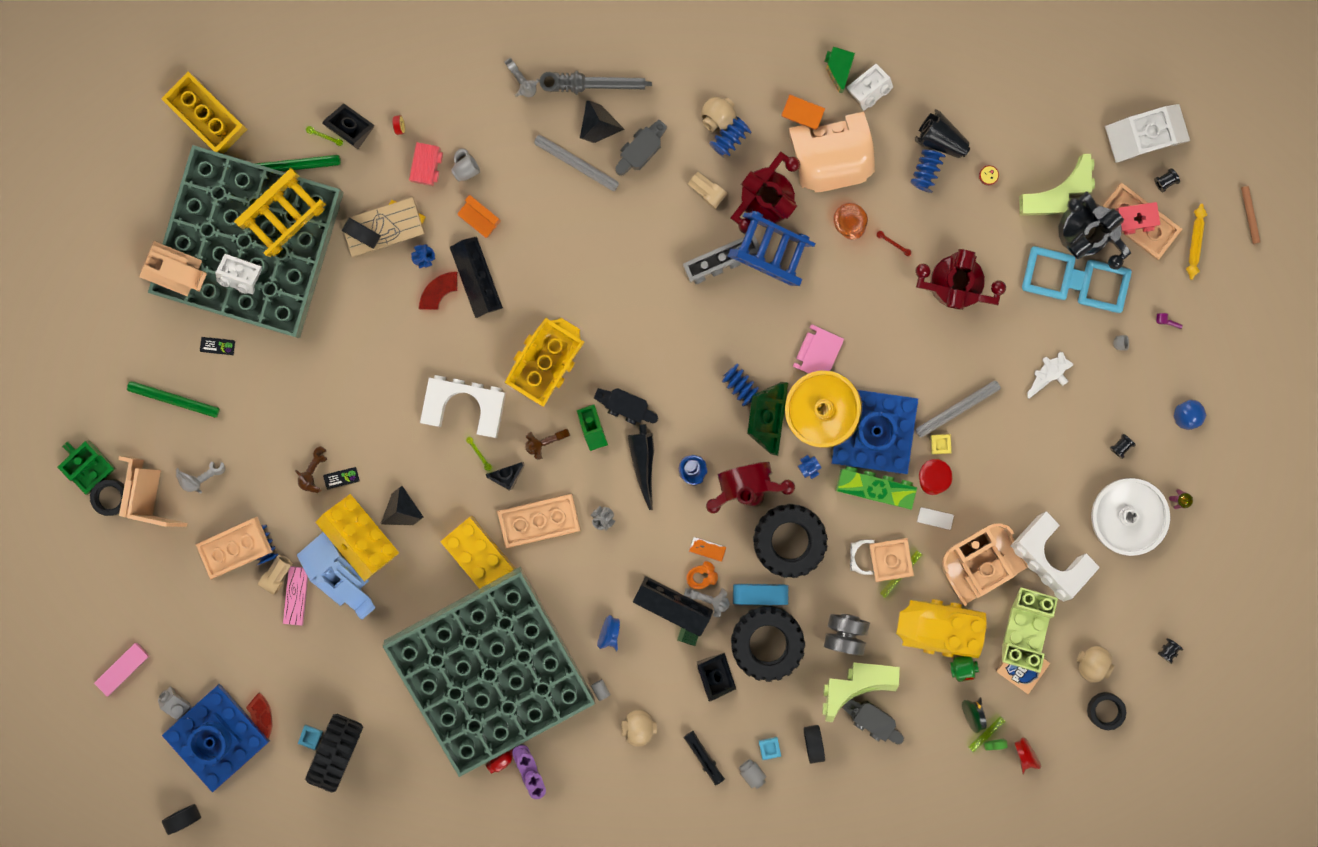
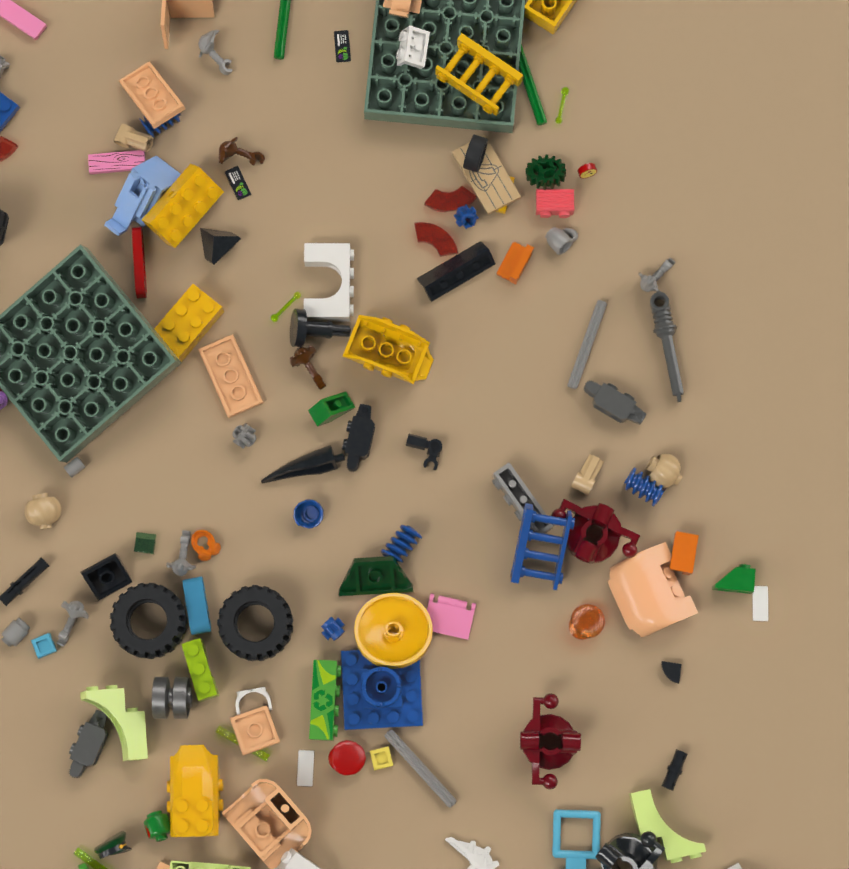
camera: 75 degrees right, 10 degrees down
(349, 125) = (576, 125): black slope -> none
(392, 166) = (545, 172): none -> dark green gear
(403, 268) = (450, 201): none -> clear red tile
(405, 591) = (139, 262): none -> red beam
(505, 441) = (301, 328): none -> black piece
(507, 476) = (268, 337): black slope -> none
(598, 123) = (629, 357): black slope -> none
(609, 633) = (130, 463): blue piece -> none
(649, 334) = (434, 447): none -> black bar
(673, 606) = (169, 521): black panel -> none
(707, 549) = (232, 545): orange sticker -> none
(742, 713) = (75, 610): none -> light grey piece
(747, 481) = (303, 565): dark red piece -> none
(814, 744) = (55, 687): black tyre -> none
(824, 602) = (199, 670): none -> lime arch
(865, 49) = (760, 603): none -> white sticker
(870, 86) = (724, 615): white bracket -> none
(880, 234) = (579, 655): clear red hinge -> none
(912, 149) = (671, 671): none -> black tile
(927, 169) = (653, 688): blue piece -> none
(942, 136) = (690, 697): black cone -> none
(988, 175) = (662, 753): light yellow tile -> none
(1007, 167) = (674, 770): none -> black pin

